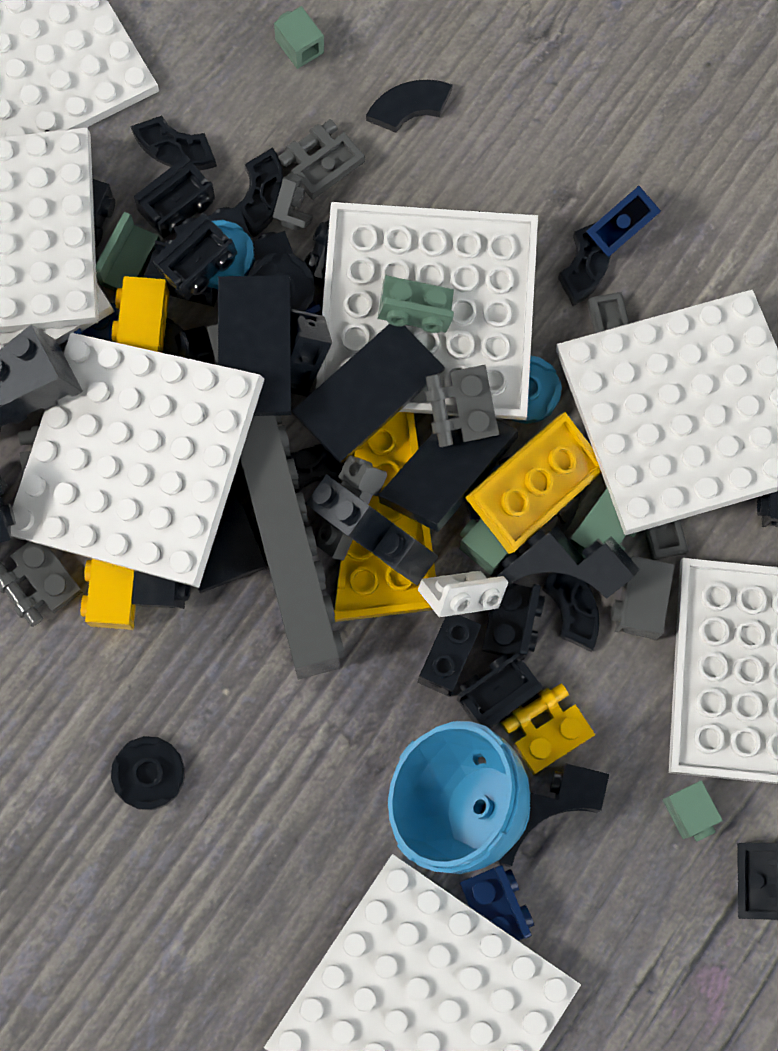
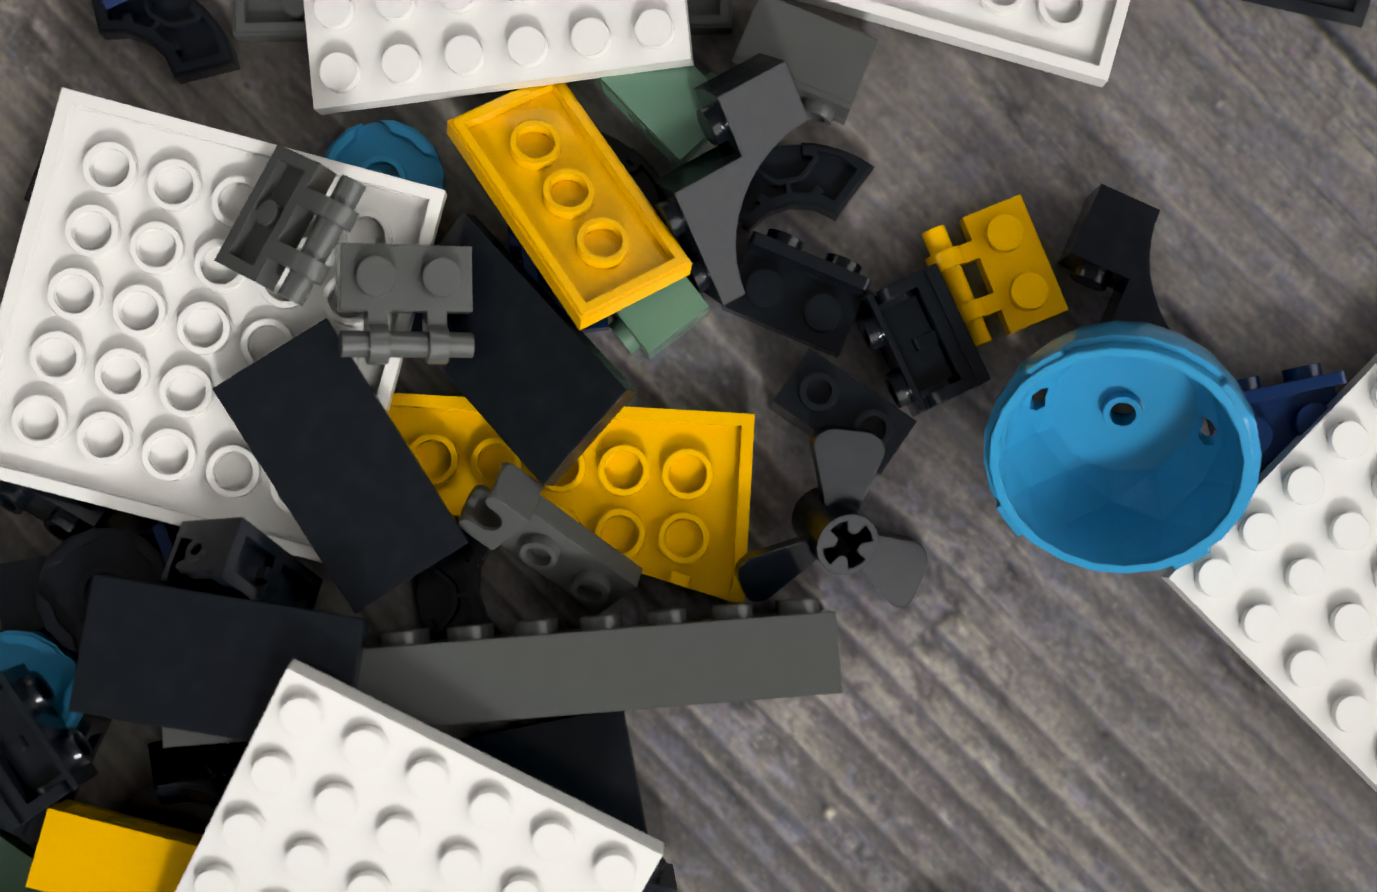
camera: 80 degrees left, 10 degrees up
(371, 530) = (607, 512): black arch -> none
(371, 697) = (844, 470): none -> black piece
(416, 304) = (196, 347): sand green bracket -> none
(463, 593) = (744, 370): white bracket -> none
(490, 331) = (277, 217): none -> dark grey plate
(693, 811) = (1177, 60): sand green brick -> none

